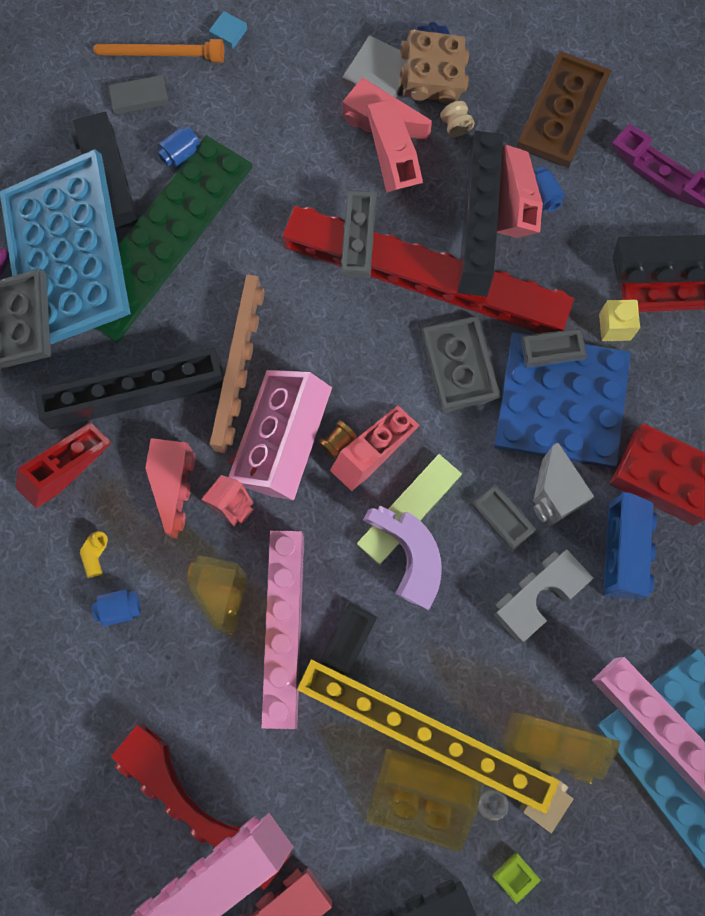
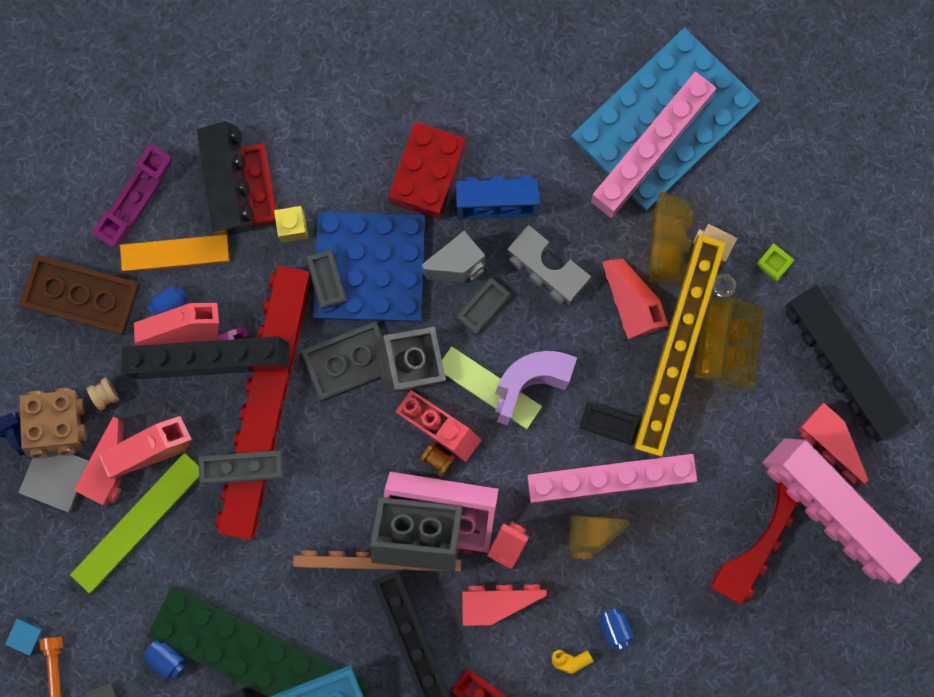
camera: 95 degrees left, 5 degrees up
(255, 399) = (416, 534): none -> dark grey slope
(318, 137) = (137, 524): none -> lime tile
(451, 422) = (409, 360): none -> flat silver brick
(487, 692) = (636, 303): none -> coral slope
(502, 249) = (235, 334): none -> magenta tile
(598, 205) = (175, 253): none -> light orange tile

